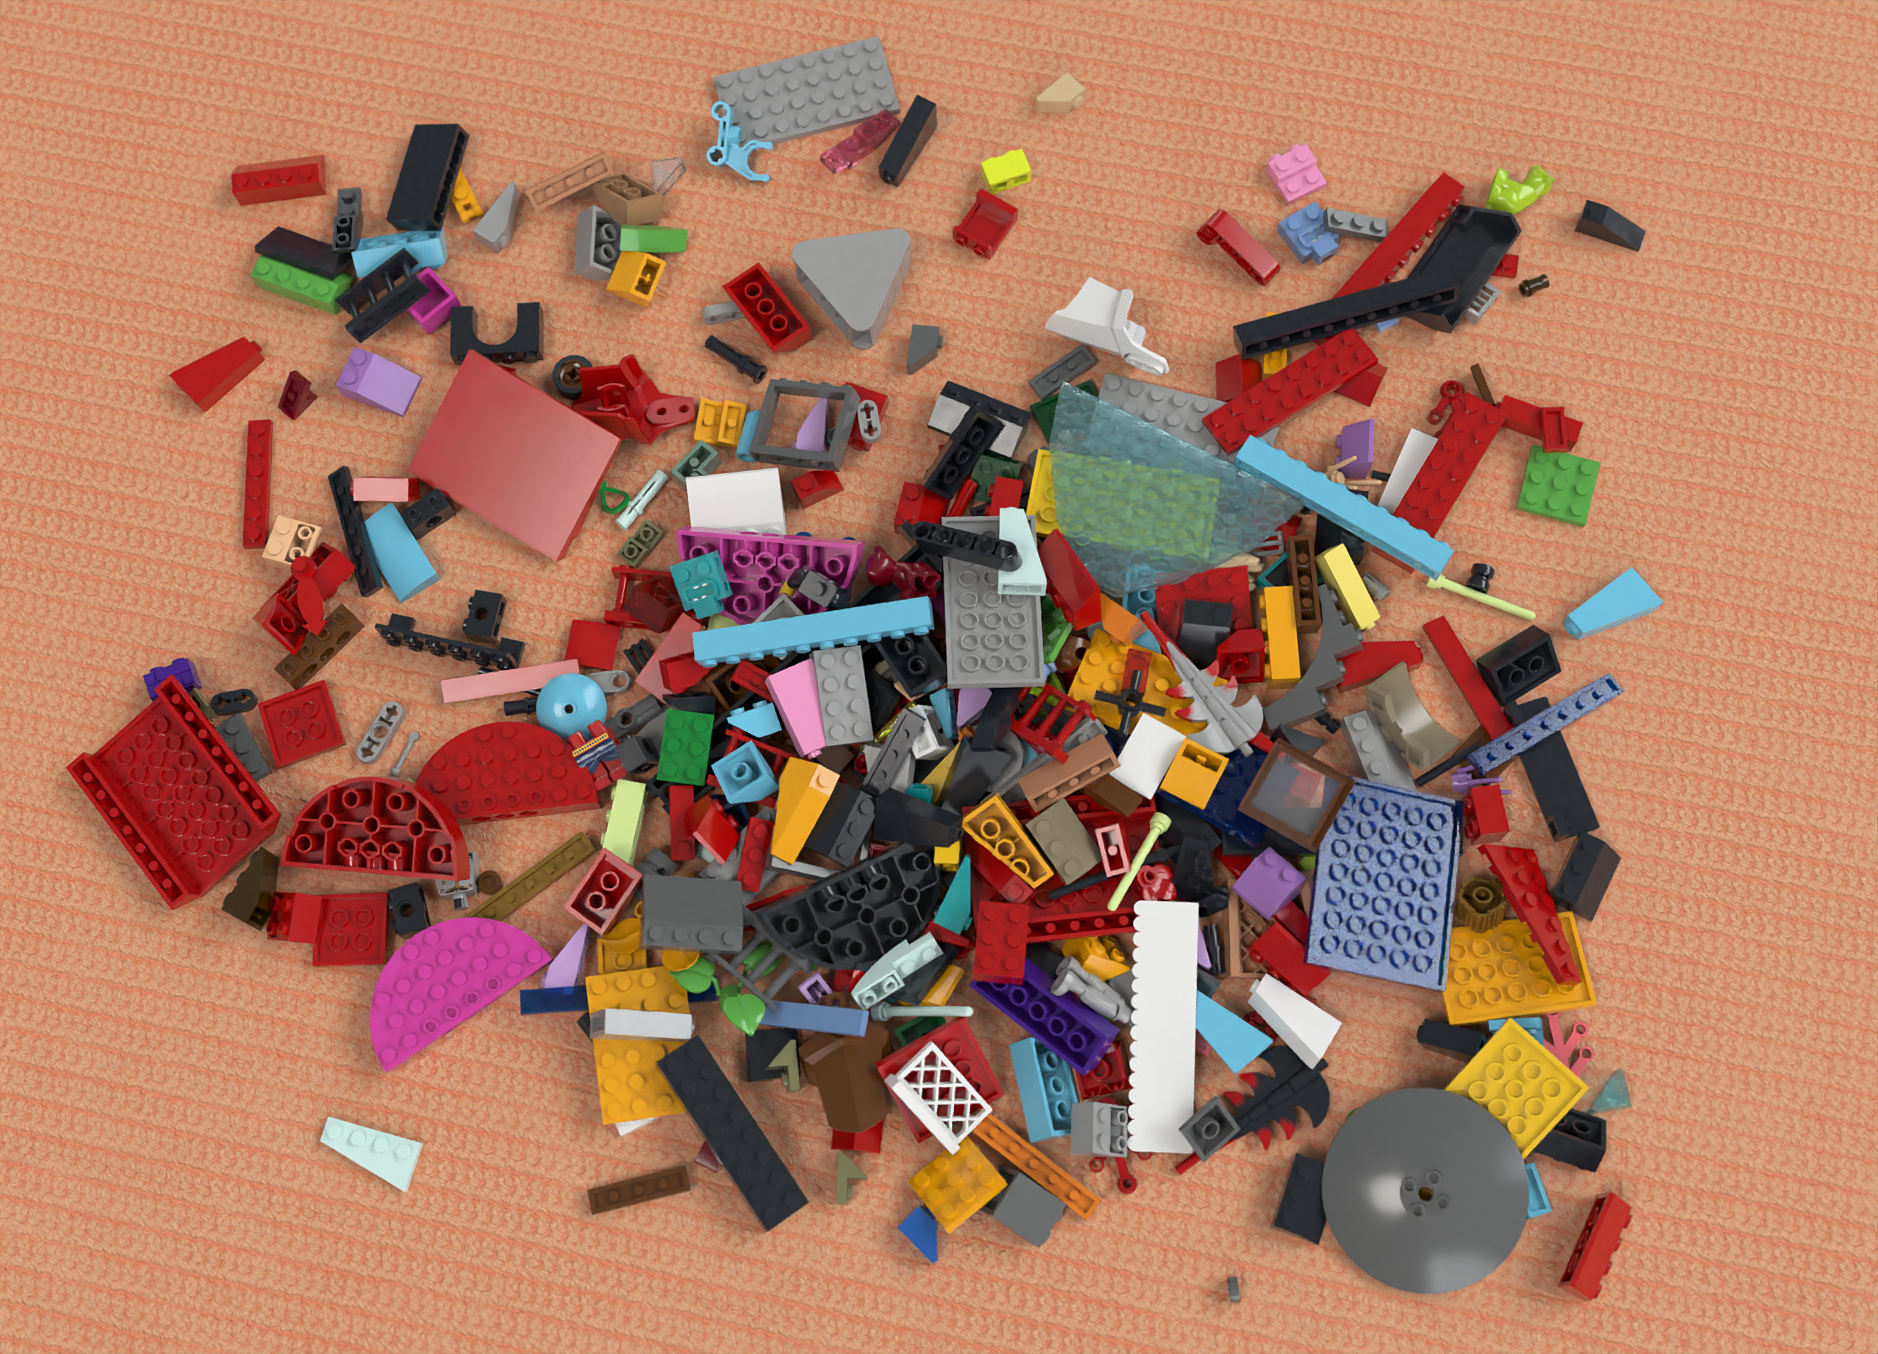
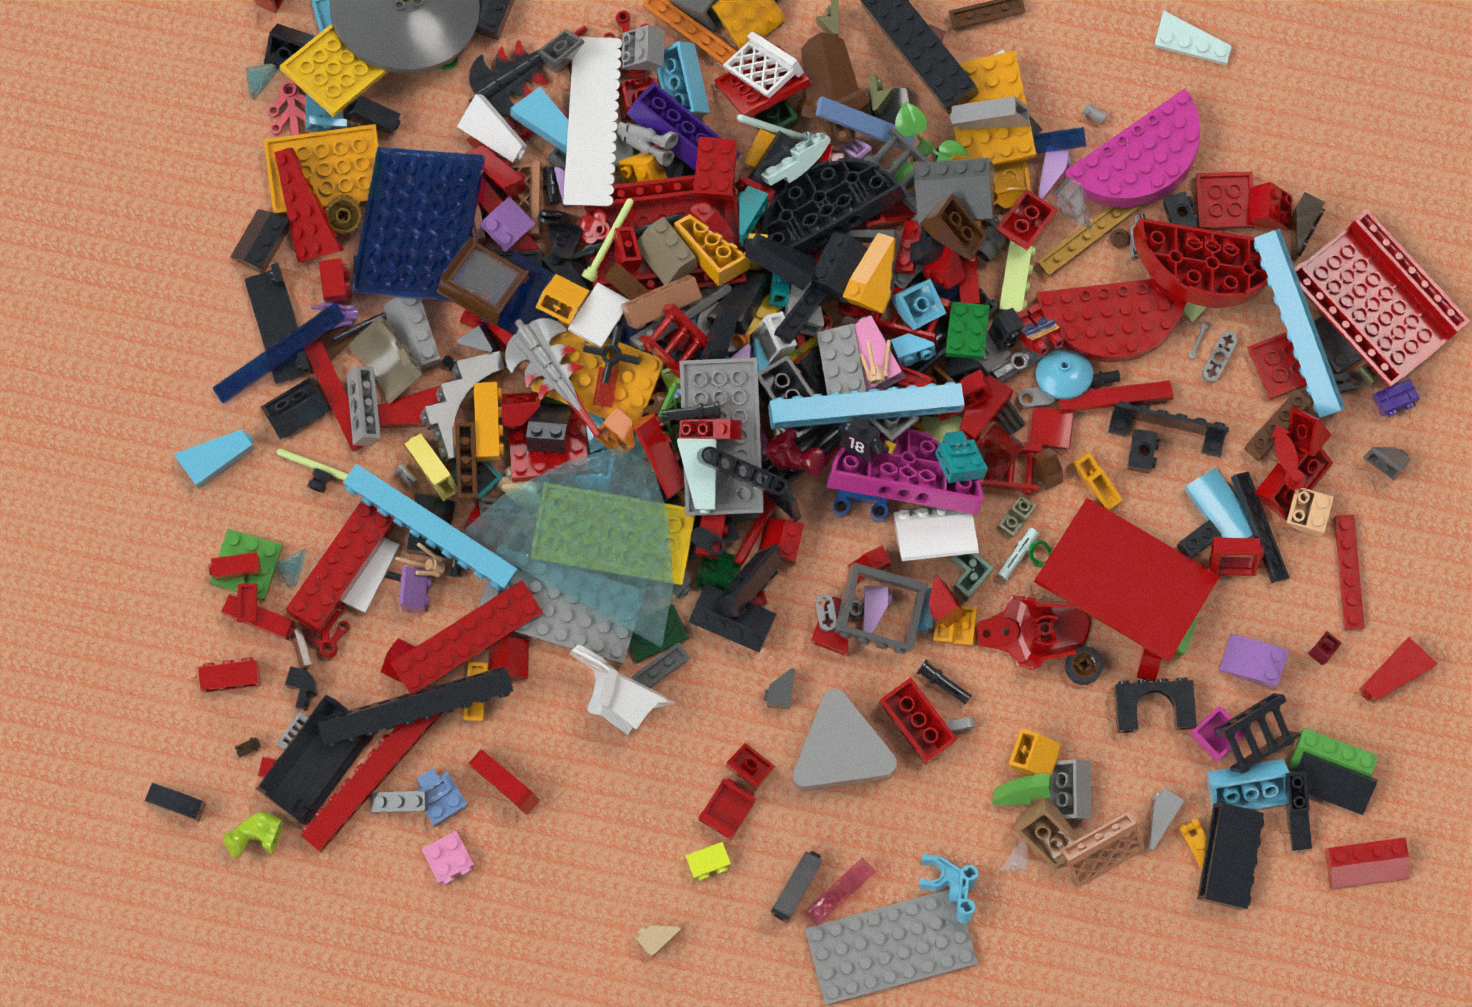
camera: 175 degrees right, 5 degrees up
(188, 604) = (1388, 460): none -> dark grey slope
(274, 757) = (1299, 323): none -> medium azure brick
(508, 1047) = (1094, 113): none -> light grey pin
(538, 917) = (1074, 202): none -> clear slope
(543, 583) = (1096, 480): none -> light orange slope
(598, 593) = (1049, 468): none -> reddish brown slope
(694, 857) = (954, 227): none -> reddish brown slope
(727, 844) = (926, 250): none -> black brick
(728, 429) = (944, 604): none -> red slope
(800, 672) = (876, 374): none -> light nougat plant
(959, 266) = (750, 766): none -> red slope
(1003, 599) = (711, 429): none -> red slope
(1011, 492) = (704, 539): none -> black piece
(1017, 619) = (700, 411): none -> black pin
(1435, 659) = (363, 406): none -> light grey brick
(1474, 350) = (304, 682): none -> black brick
(1504, 479) = (291, 567): none -> clear light blue slope
(1564, 358) = (229, 675): none -> red brick
(1572, 471) = (235, 566): none -> red brick

